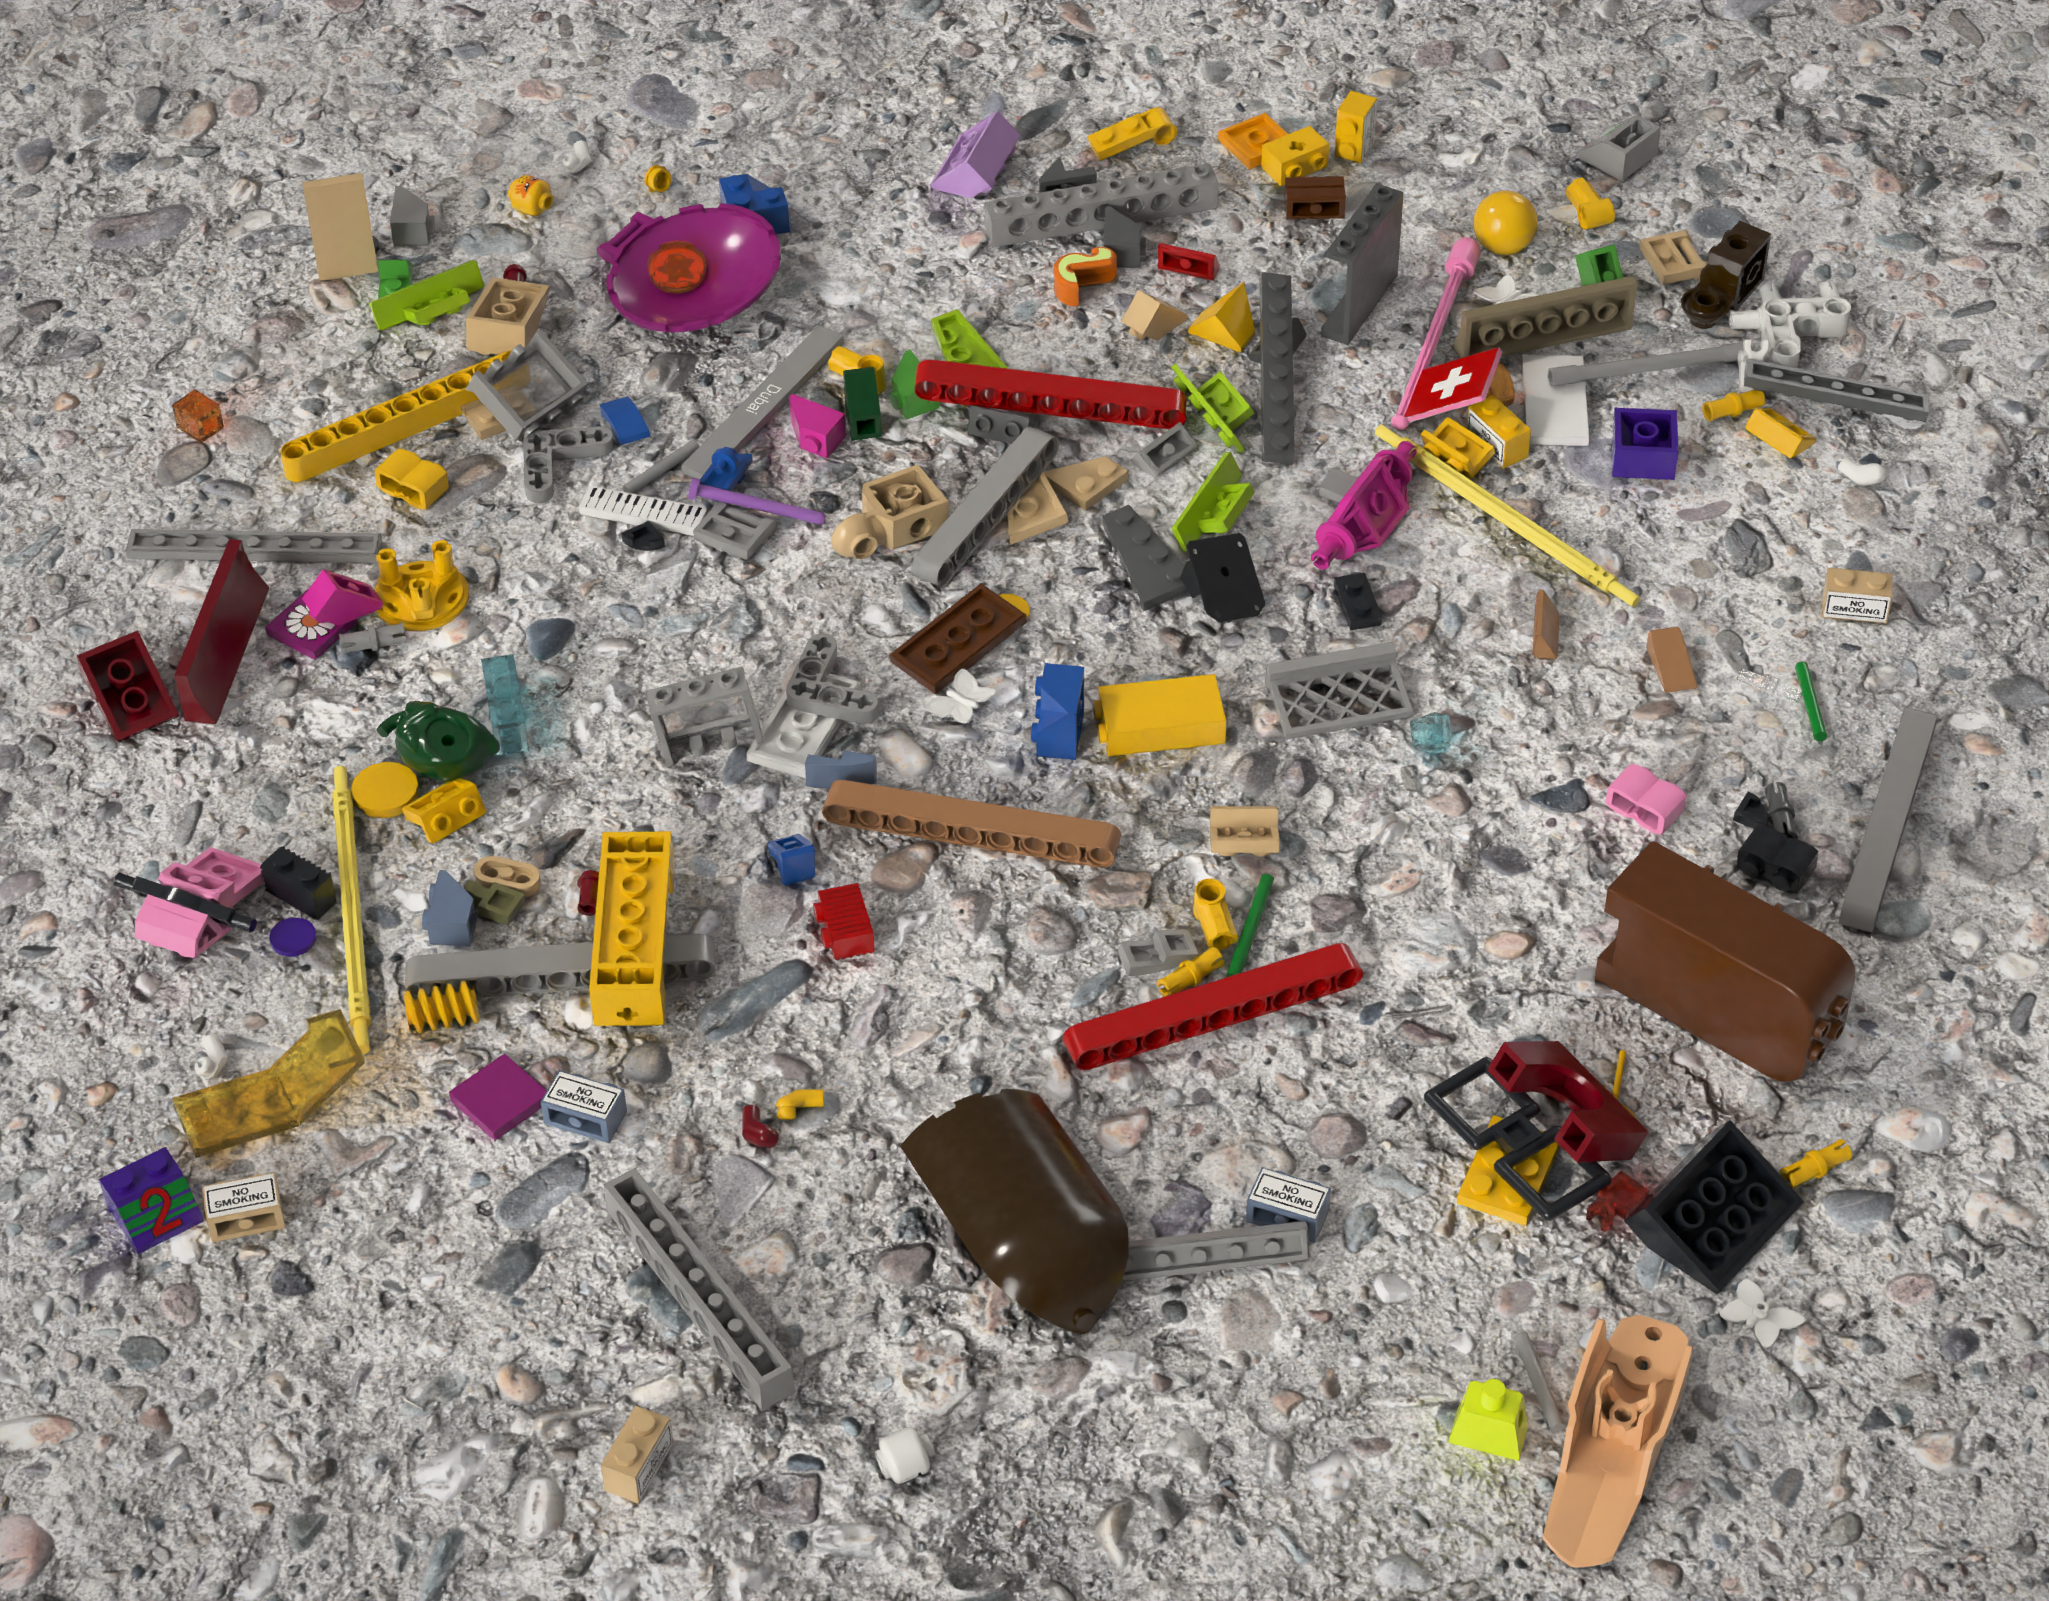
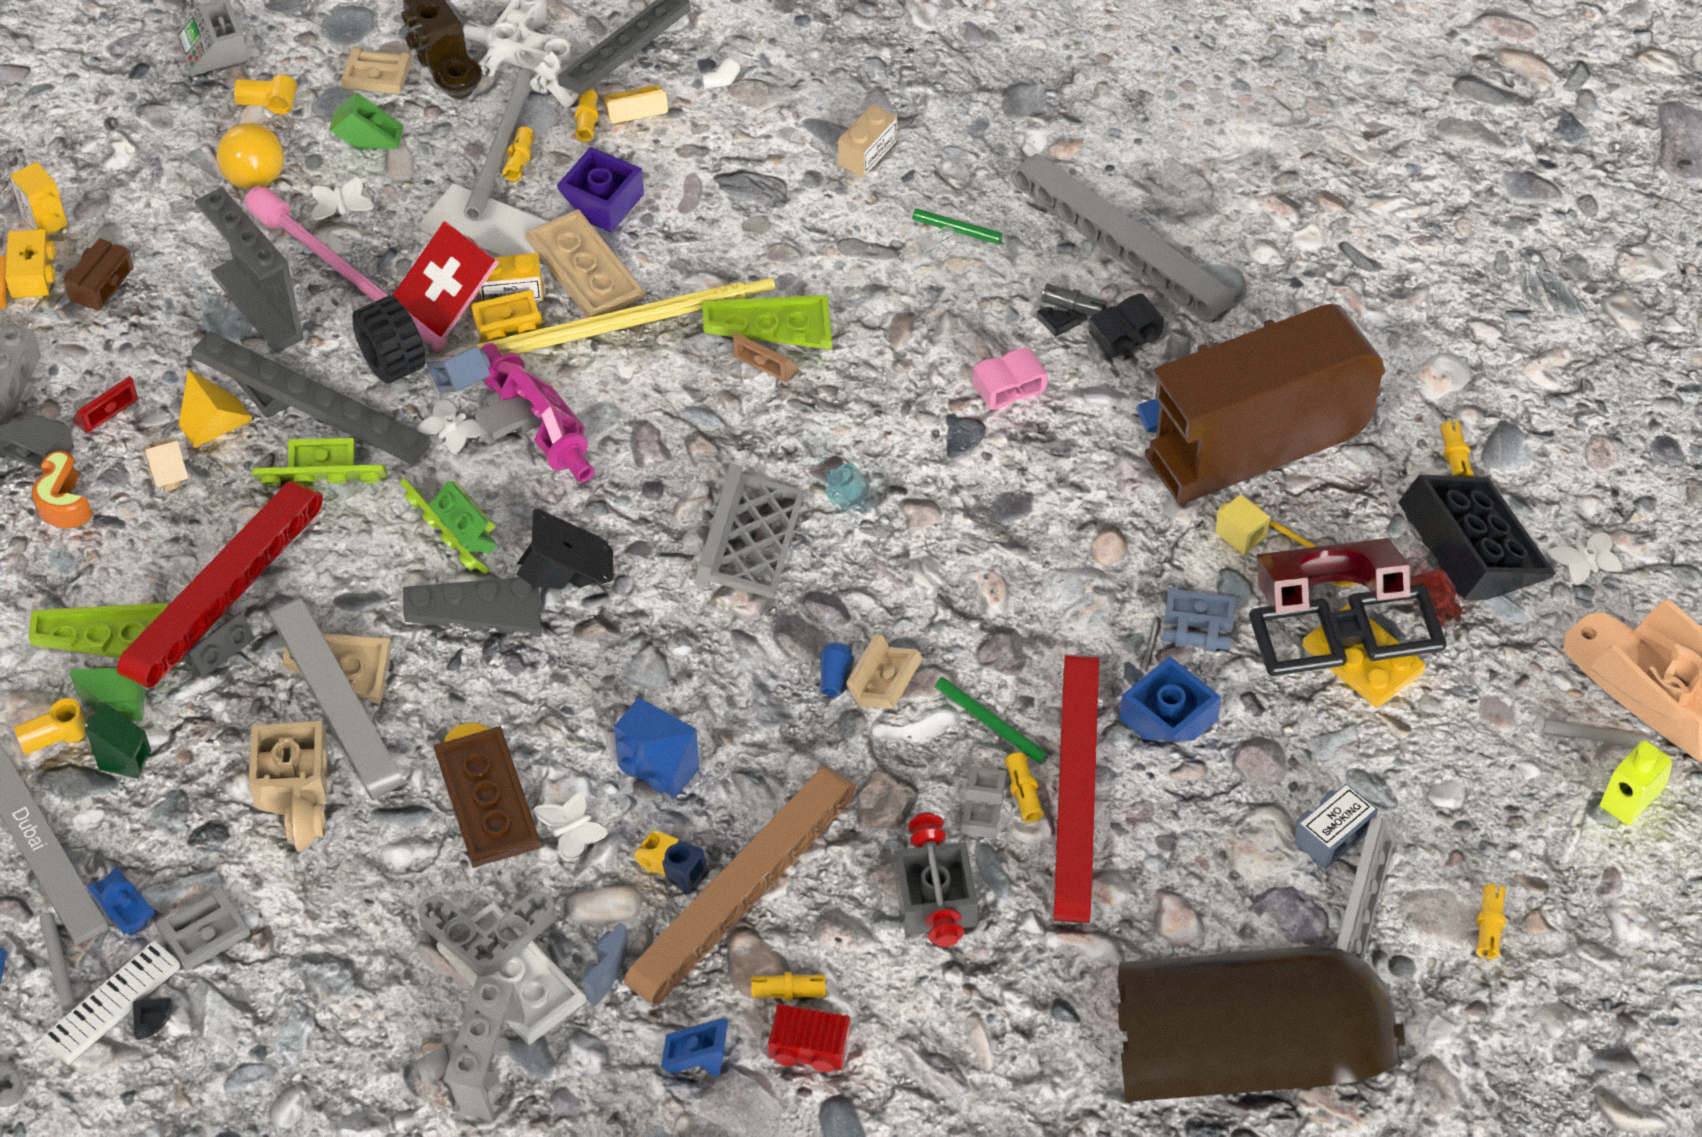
camera: 65 degrees left, 5 degrees up
(697, 489) = (135, 935): medium lavender bar -> none
(816, 426) = (105, 798): dark pink slope -> none
(890, 892) = (788, 986): none -> yellow pin
(965, 771) = (672, 859): none -> leg
(1038, 940) = (935, 883): none -> dark grey brick
(1087, 481) = (344, 605): tan wing -> none
(1160, 715) = (700, 670): yellow brick -> none
(1165, 451) = (345, 532): light grey slope -> none
(1203, 501) = (462, 519): none -> bright green bracket
(1213, 914) = (967, 738): yellow piece -> none
(1234, 795) = (835, 665): none -> blue cone
(1258, 1357) = (1491, 921): none -> yellow pin
(1319, 464) = (448, 425): none -> white piece
(1337, 1035) = (1170, 704): none -> blue slope
(1357, 601) = (641, 472): black plate -> none
(1362, 379) = (388, 339): none -> black tyre
(1366, 434) = (459, 368): none -> sand blue brick
(1471, 1028) = (1200, 611): none -> sand blue plate
(1548, 319) = (401, 188): dark tan arch -> none
(1557, 473) = (585, 264): none -> tan tile
(1592, 618) = (773, 319): none -> lime wing
(1596, 1024) = (1242, 524): none -> light yellow brick
(1652, 382) = (519, 153): none -> yellow pin
(1671, 659) = (857, 292): medium nougat slope -> none

